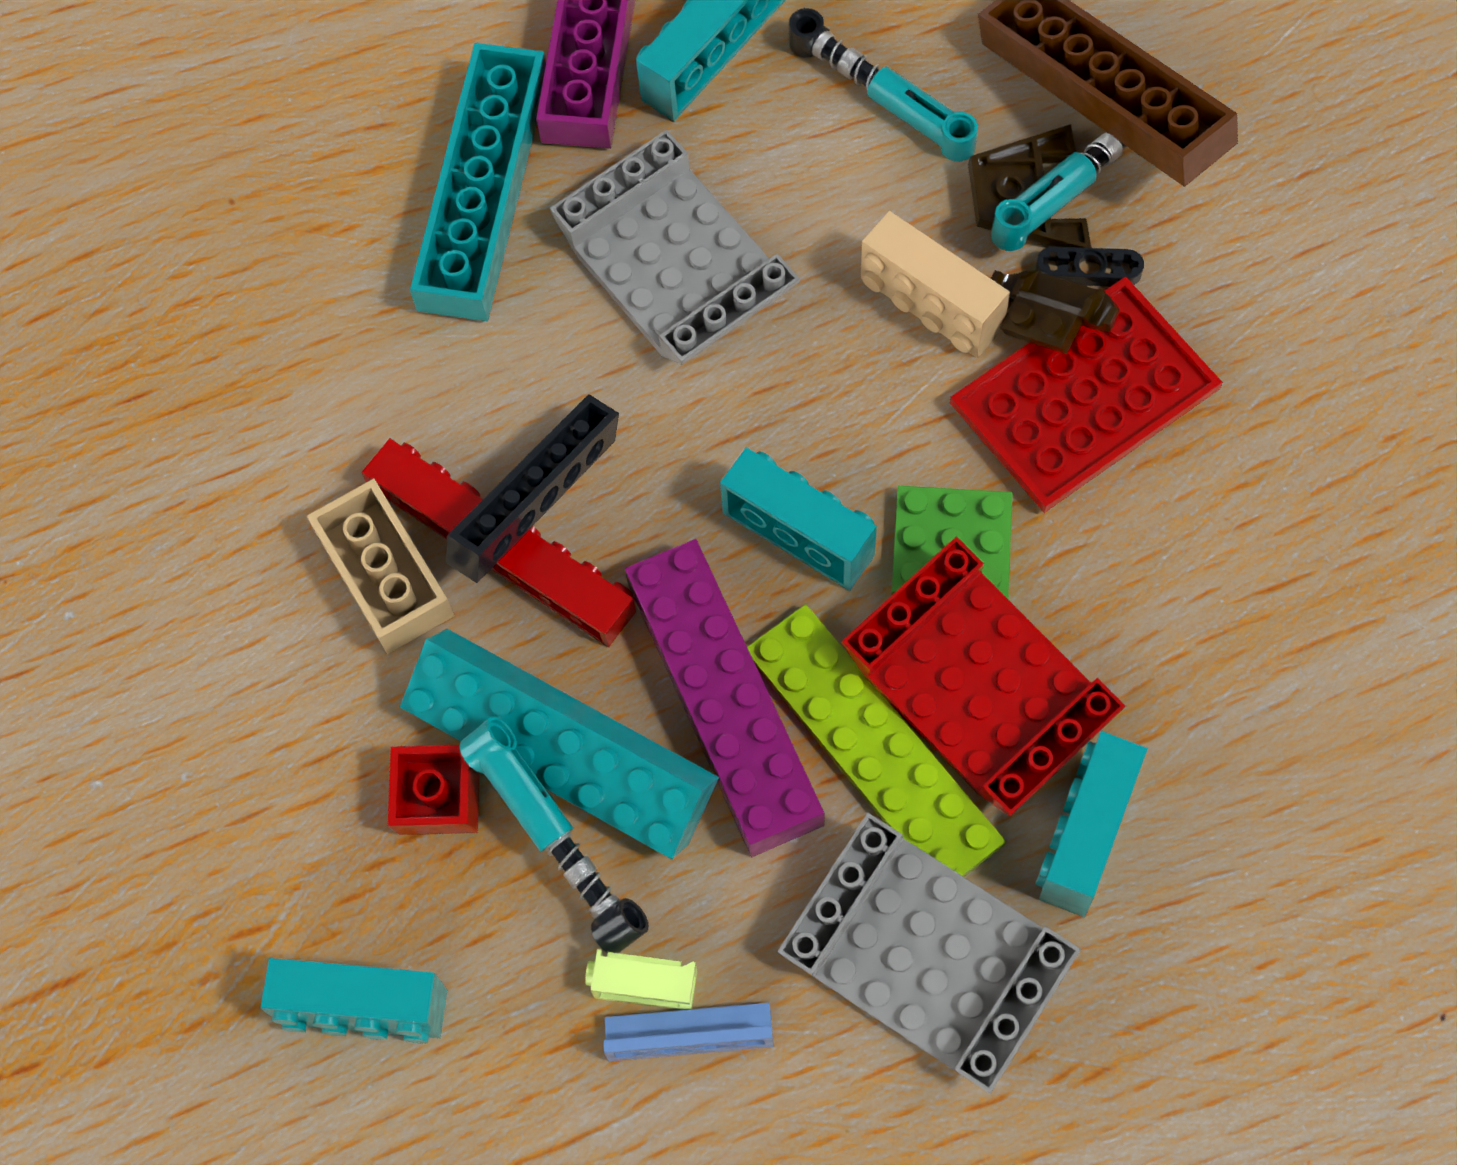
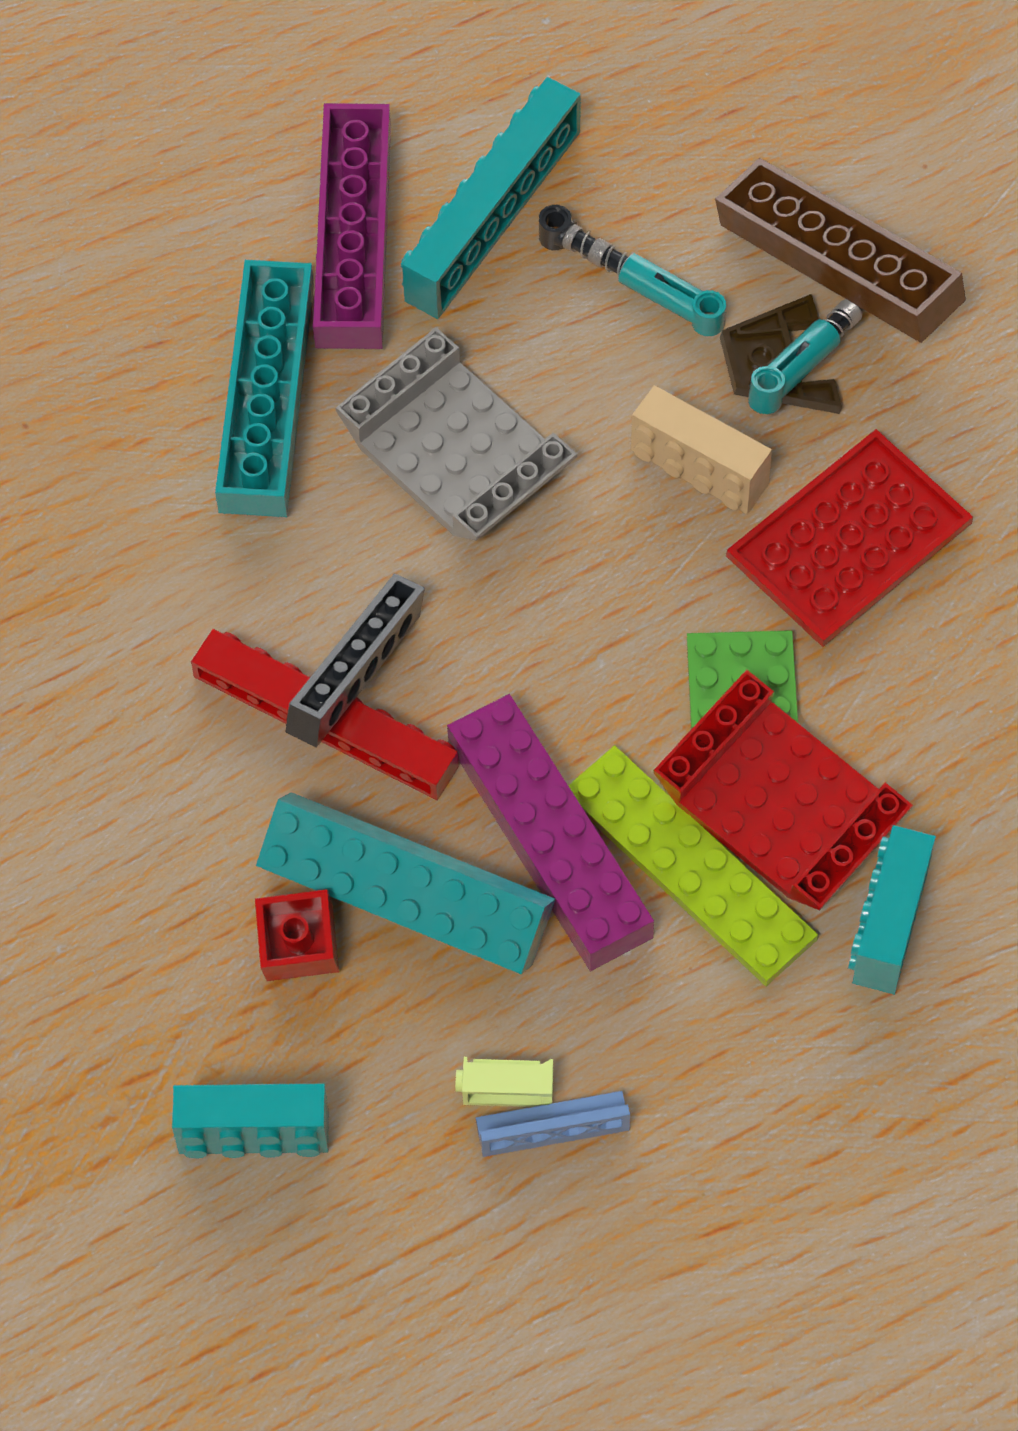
camera: 10 degrees left, 5 degrees down
(380, 566) = (219, 744): tan brick -> none
(494, 752) = (351, 893): piece -> none
(798, 518) = (600, 668): teal brick -> none
(928, 953) = (758, 1032): light grey slope -> none
(1053, 309) = (812, 463): dark brown plate -> none
(1101, 256) = (831, 433): black beam -> none

